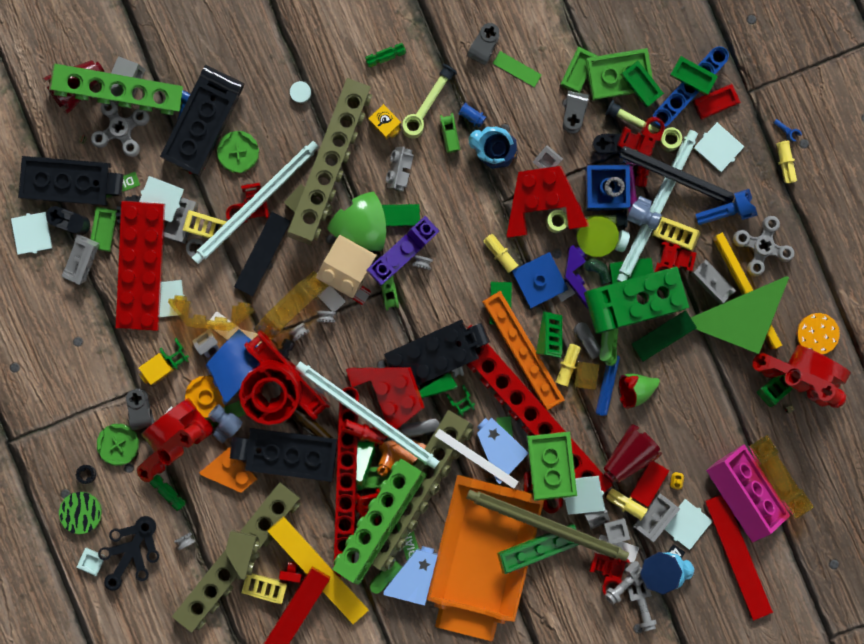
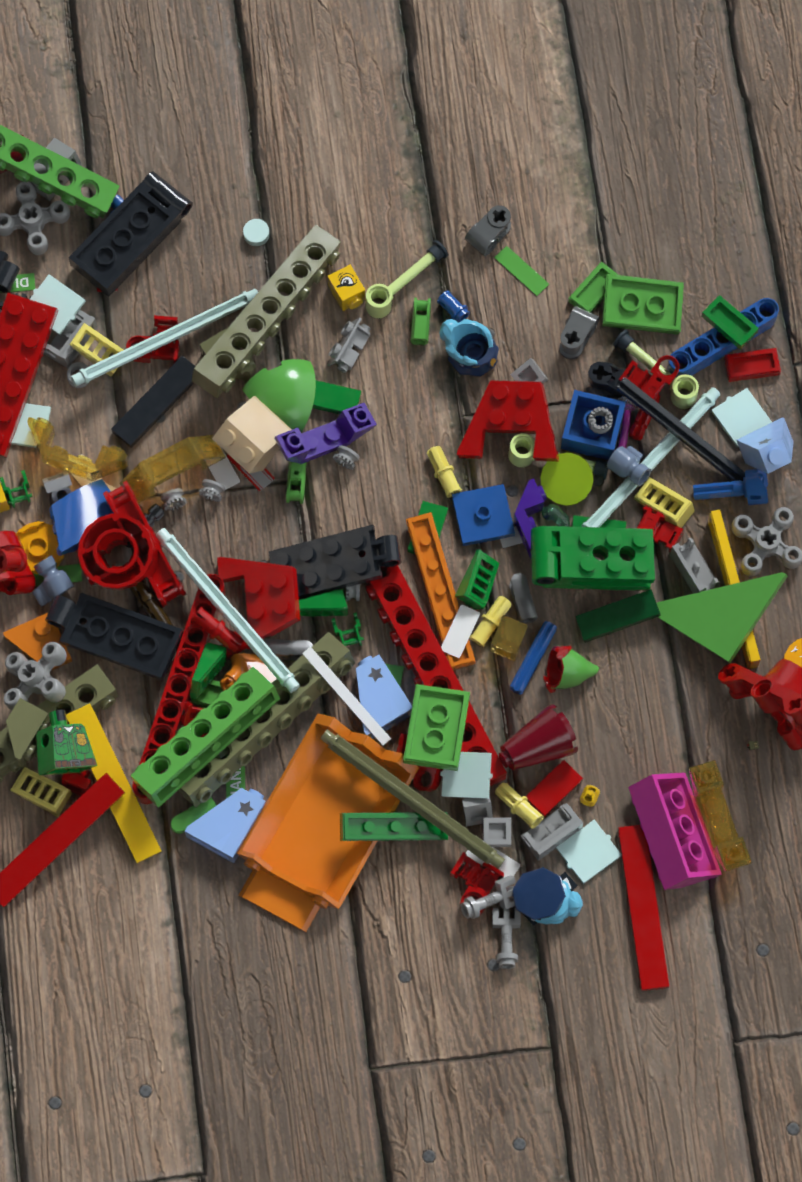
camera: 15 degrees right, 15 degrees down
(235, 504) = (36, 675): none -> light grey gear
(238, 151) = (162, 280): bright green tile -> none
(274, 560) = (63, 747): none -> green torso
(385, 55) = (369, 215): green axle -> none
(547, 380) = (460, 631): none -> white sticker
(608, 349) = (546, 609): bright green bar -> none
(623, 241) = (595, 493): light aqua tile -> none
(642, 84) = (666, 319): green tile -> none
(748, 171) = (767, 447): none -> light blue slope
(773, 397) = (732, 720): green slope -> none

